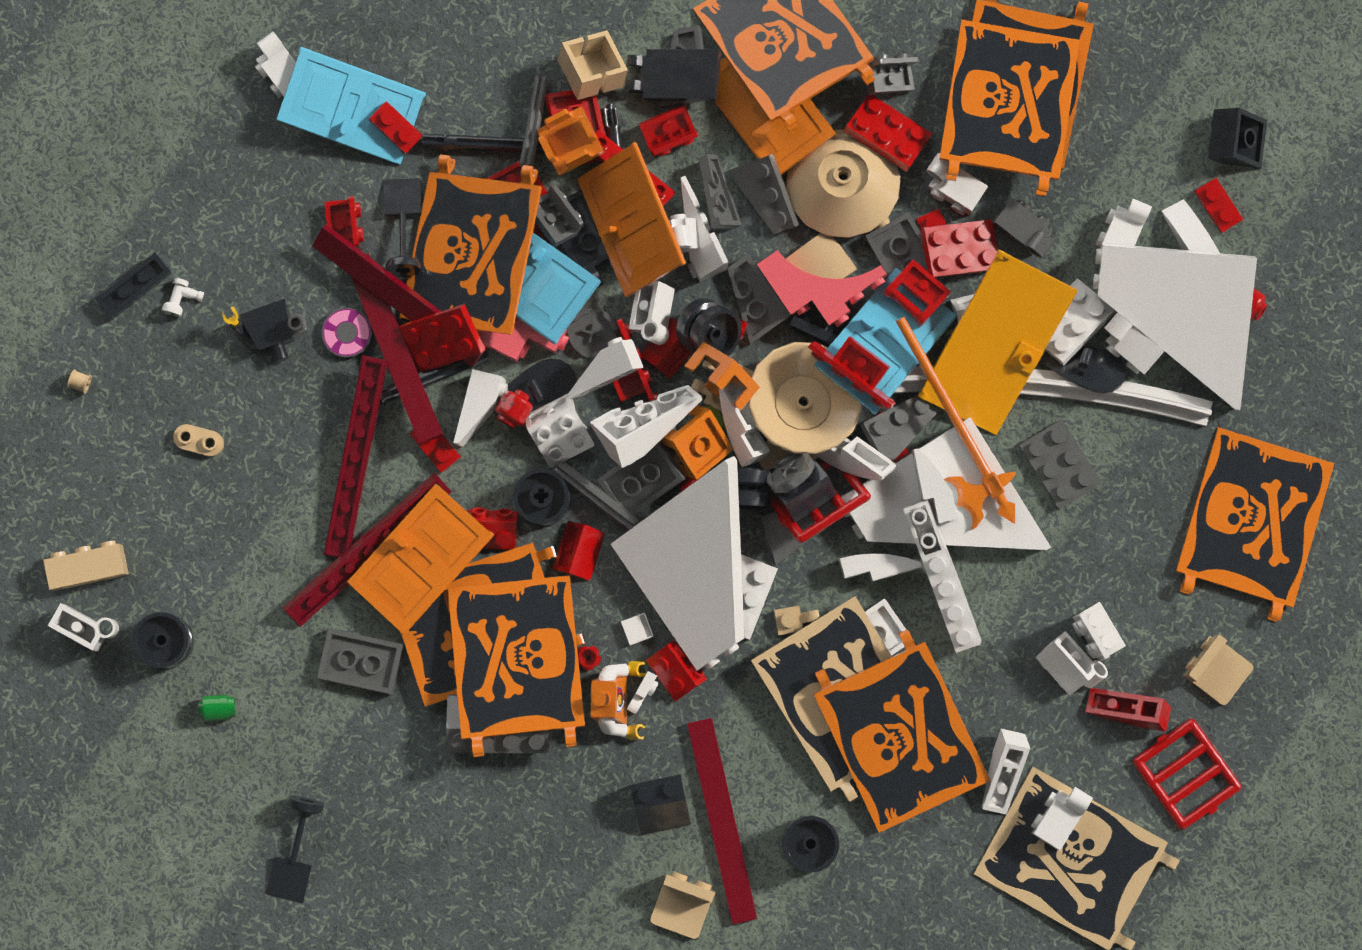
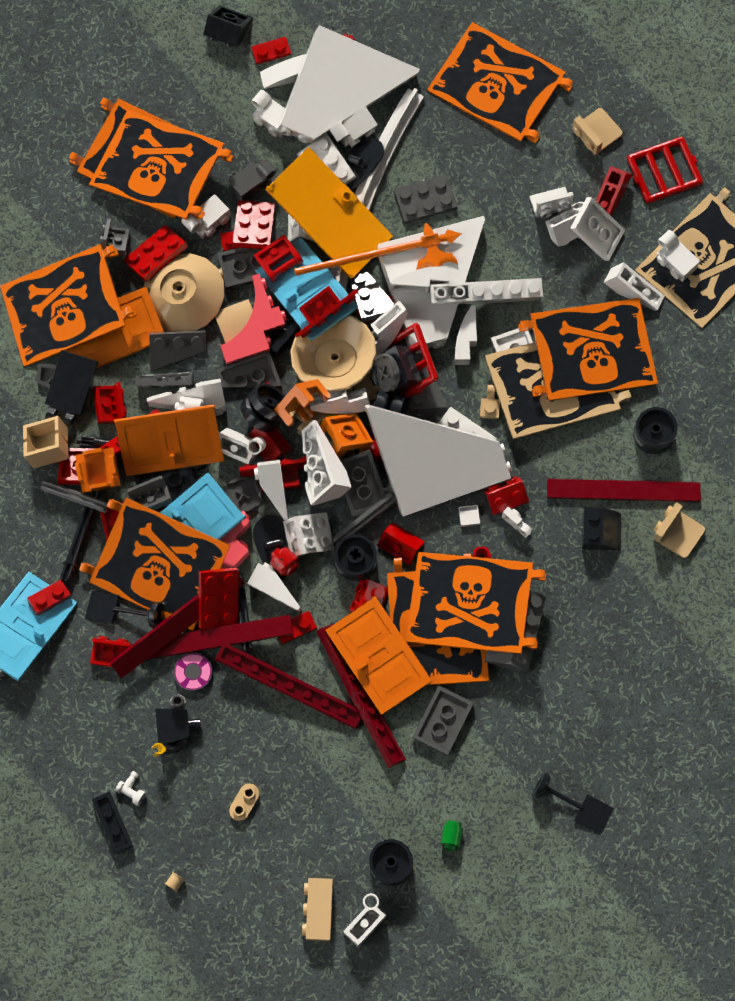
camera: 70 degrees left, 10 degrees down
(610, 700) = (517, 544): torso -> none
(1070, 703) = (597, 229): none -> white plate

